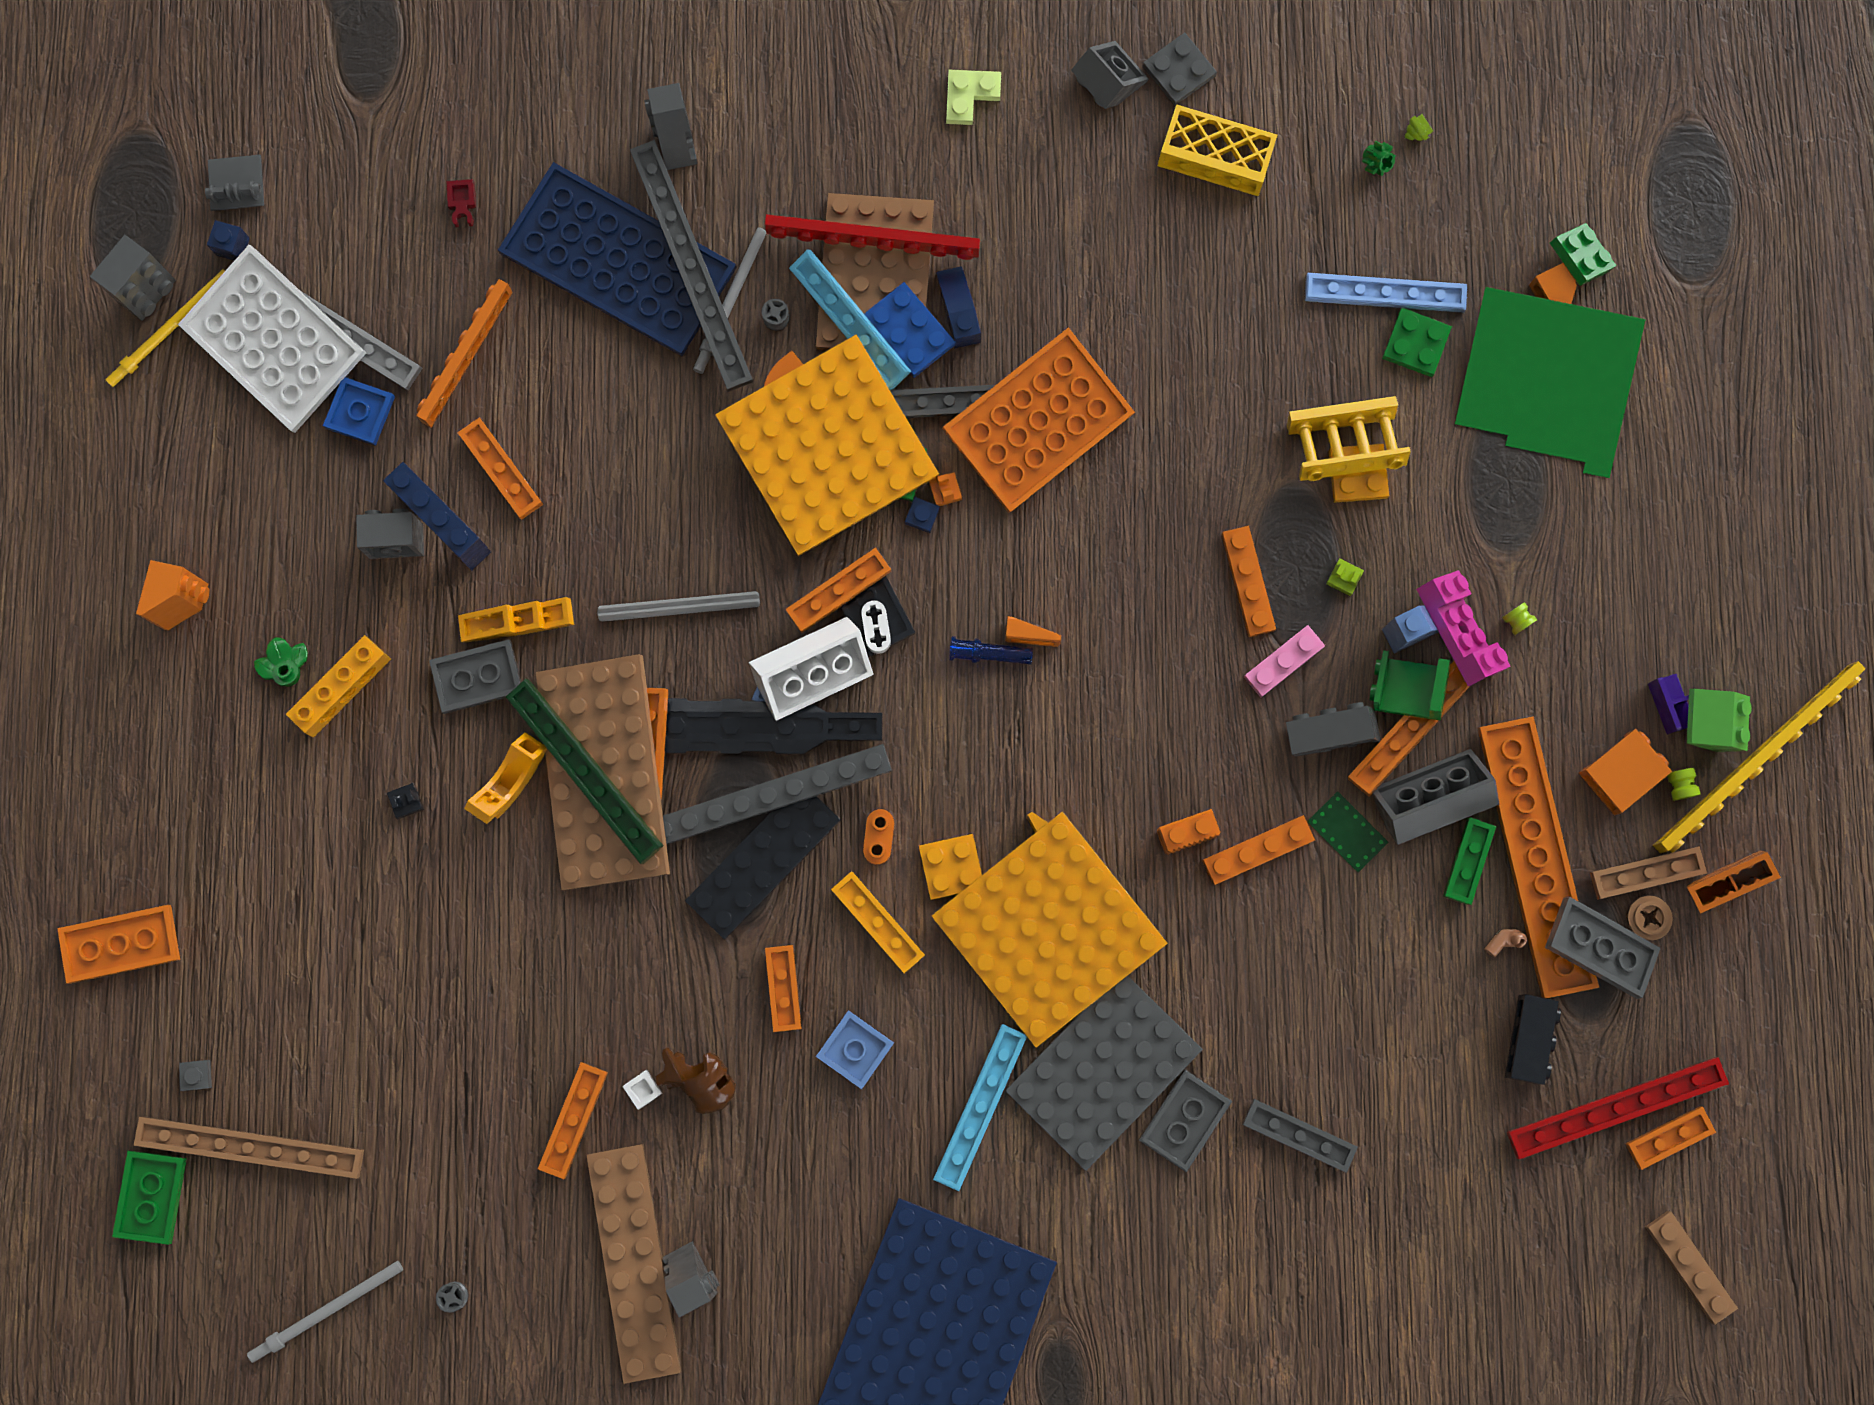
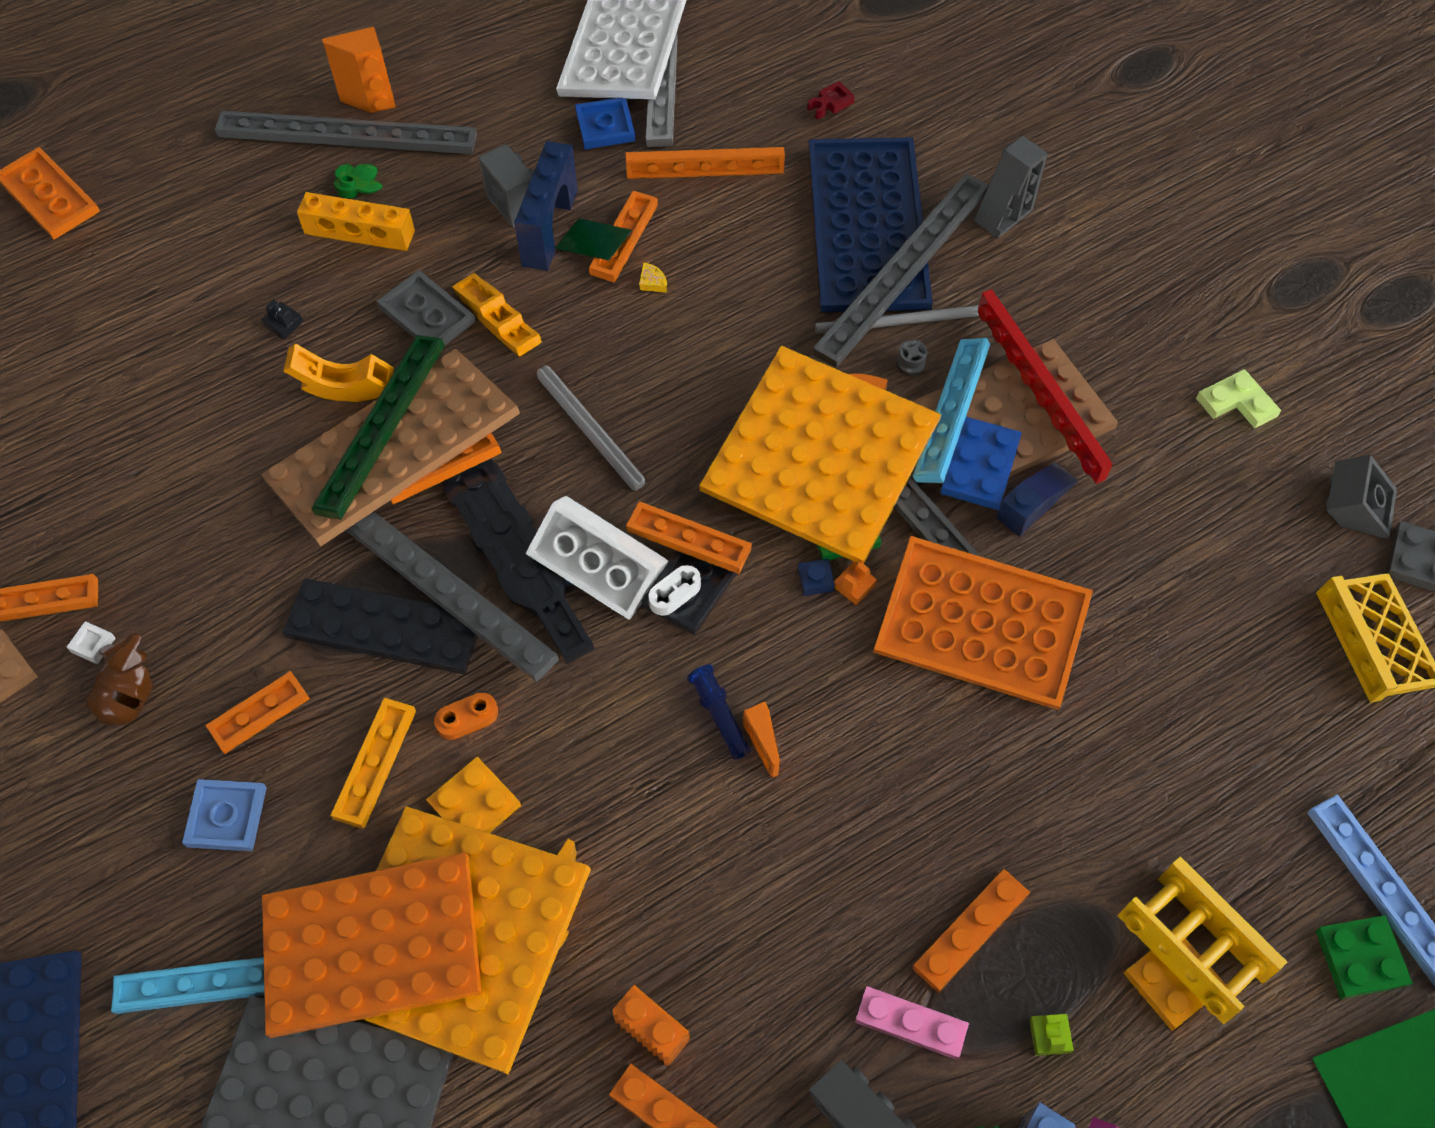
camera: 60 degrees right, 20 degrees down
(218, 645) = (346, 132): none -> dark grey plate
(489, 496) = (593, 239): none -> dark green sticker
(560, 470) = (652, 279): none -> yellow tile
(1024, 990) = (369, 945): none -> orange plate

